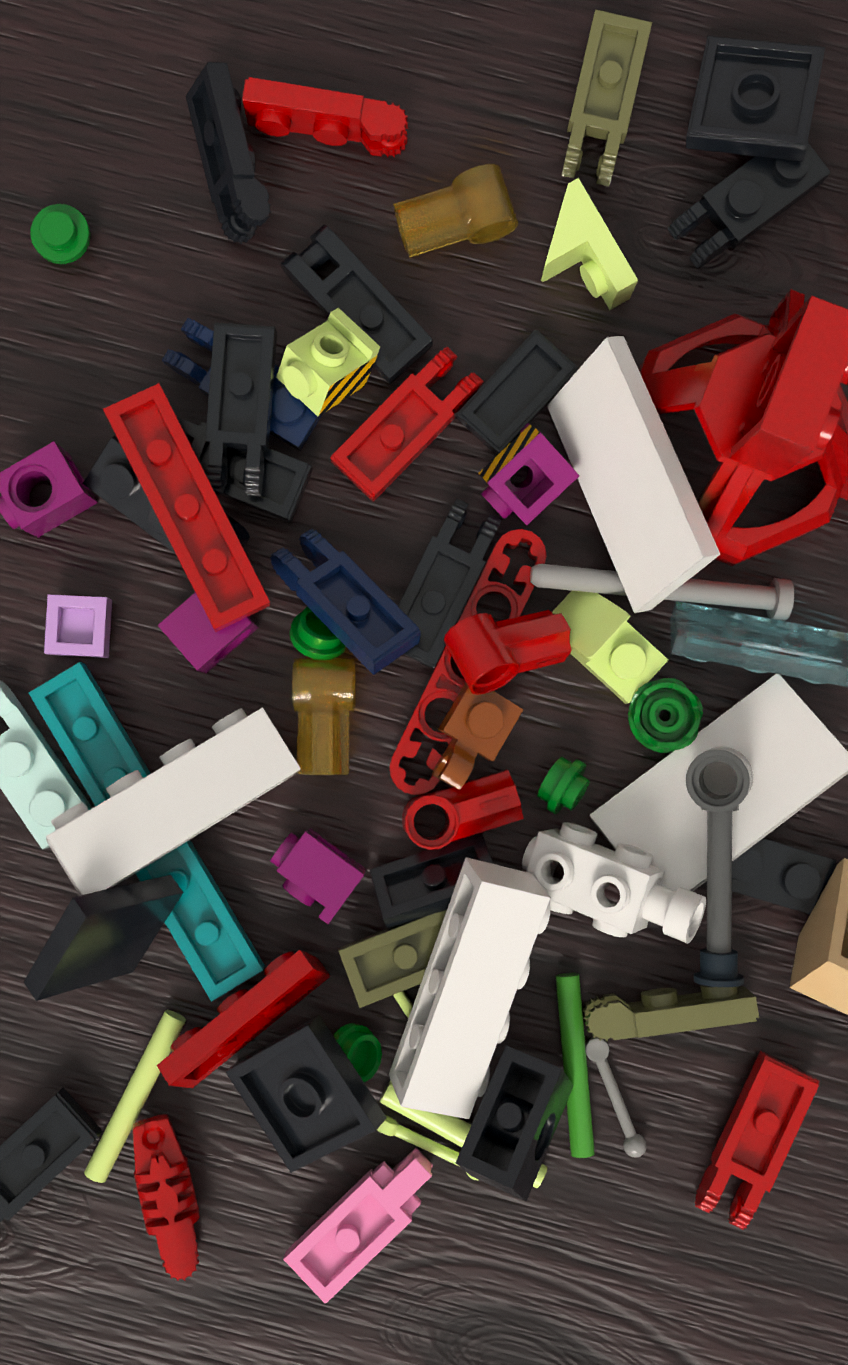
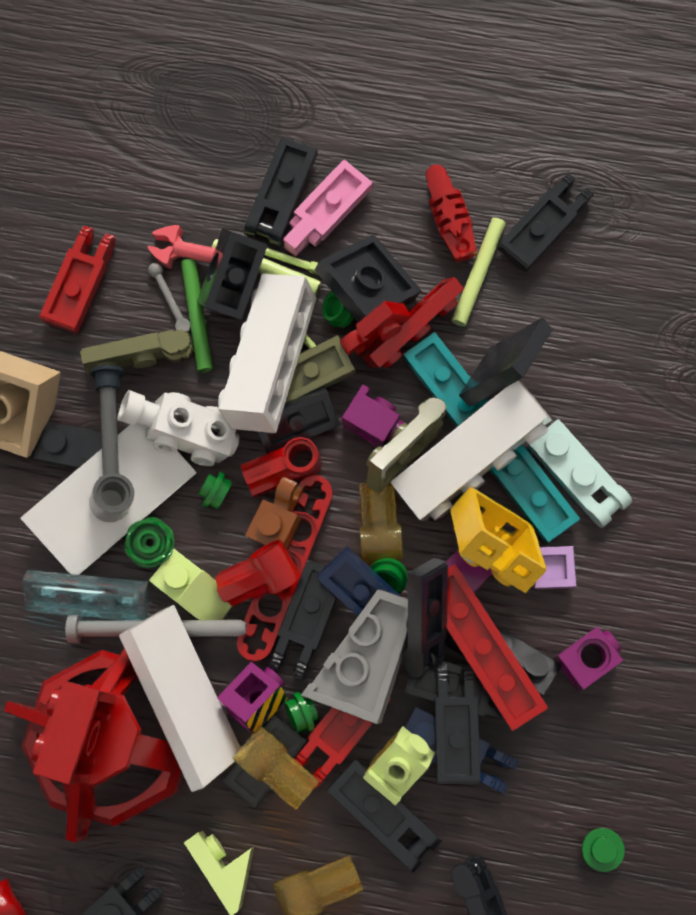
camera: 175 degrees right, 10 degrees down
(155, 652) = (483, 542): none -> yellow piece
(262, 552) = (426, 617): none -> black hinge
(270, 826) = (406, 444): none -> olive hinge
(289, 1016) = (381, 324): none -> red plate
(357, 508) = (366, 663): none -> light grey wing
(428, 1261) = (281, 190): none -> black plate
(460, 450) = (301, 713): none -> green plate
(512, 384) = (269, 762): none -> clear yellow piece
(593, 1176) = (179, 249): none -> coral bar

